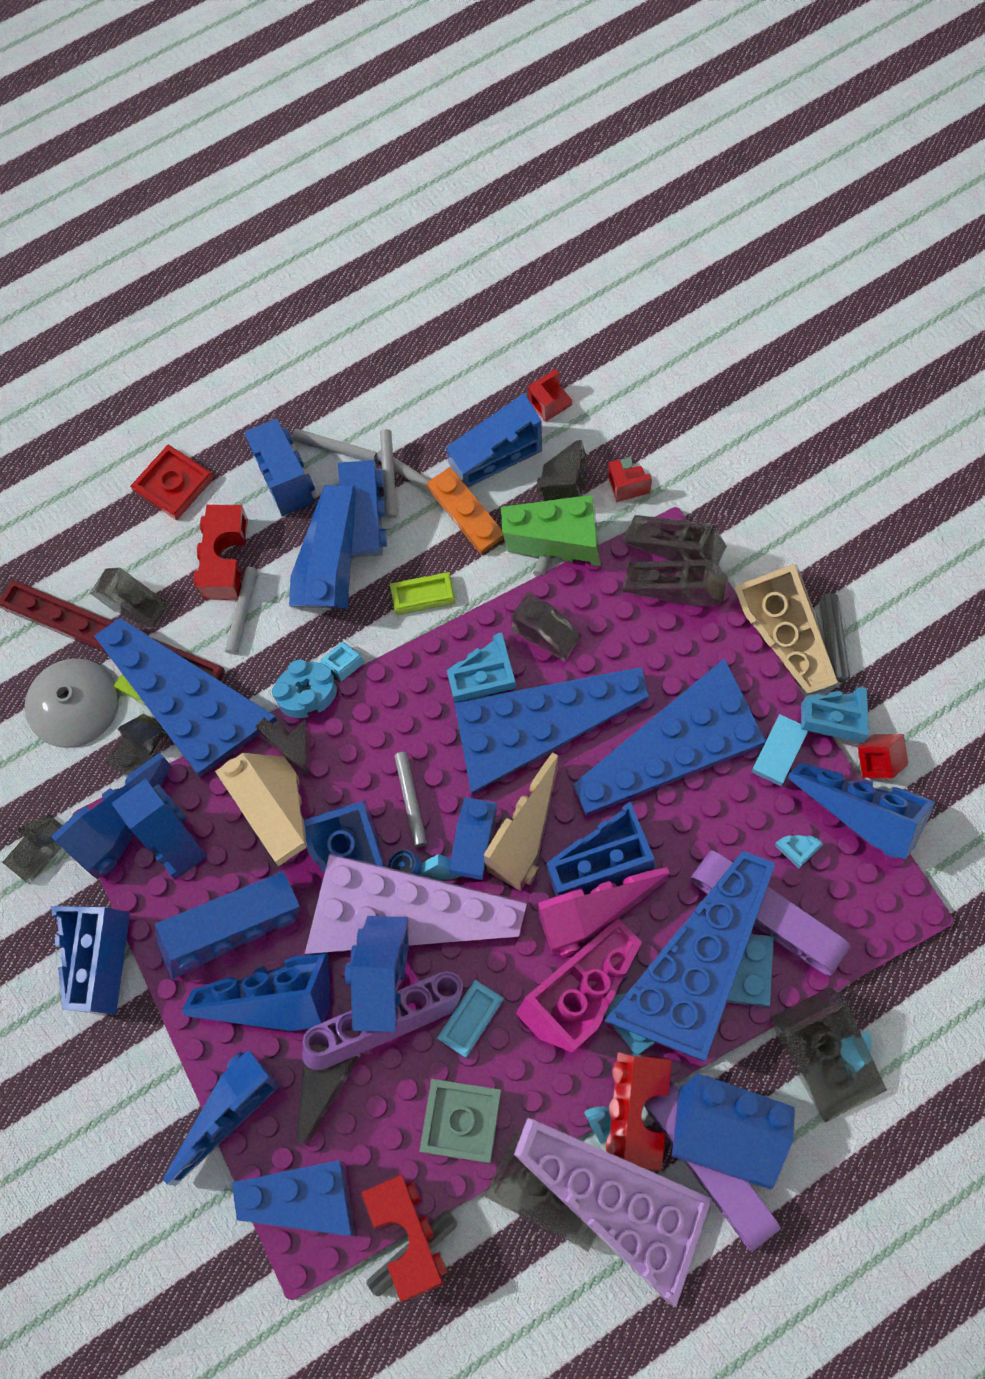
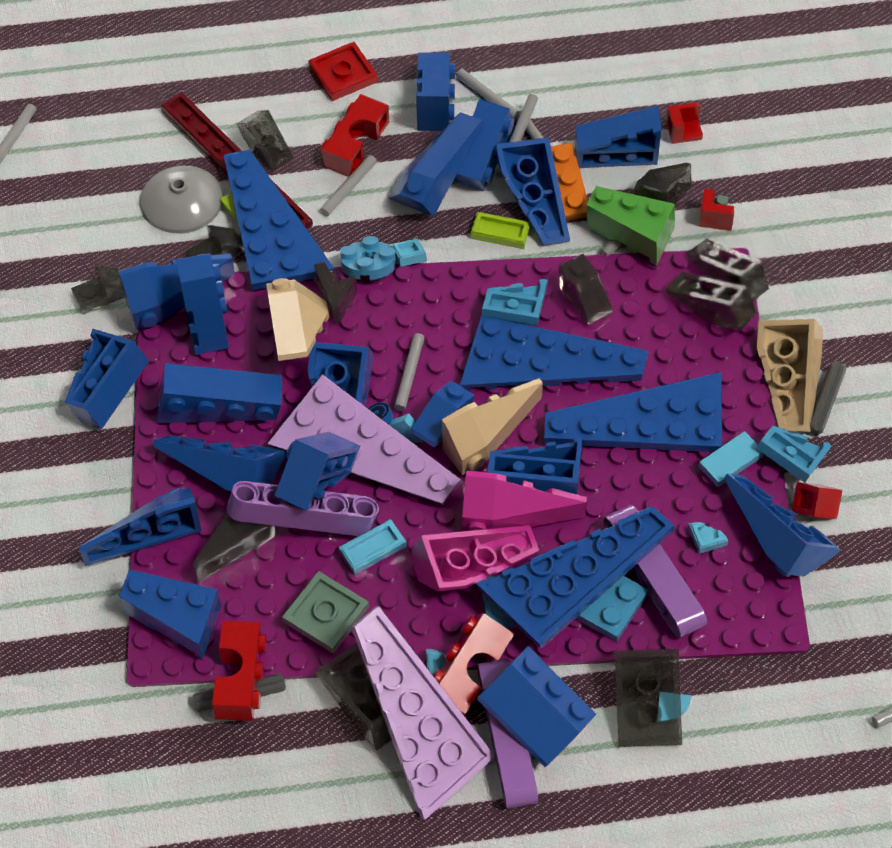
camera: 20 degrees right, 10 degrees down
(432, 526) = (534, 183): none -> blue wedge

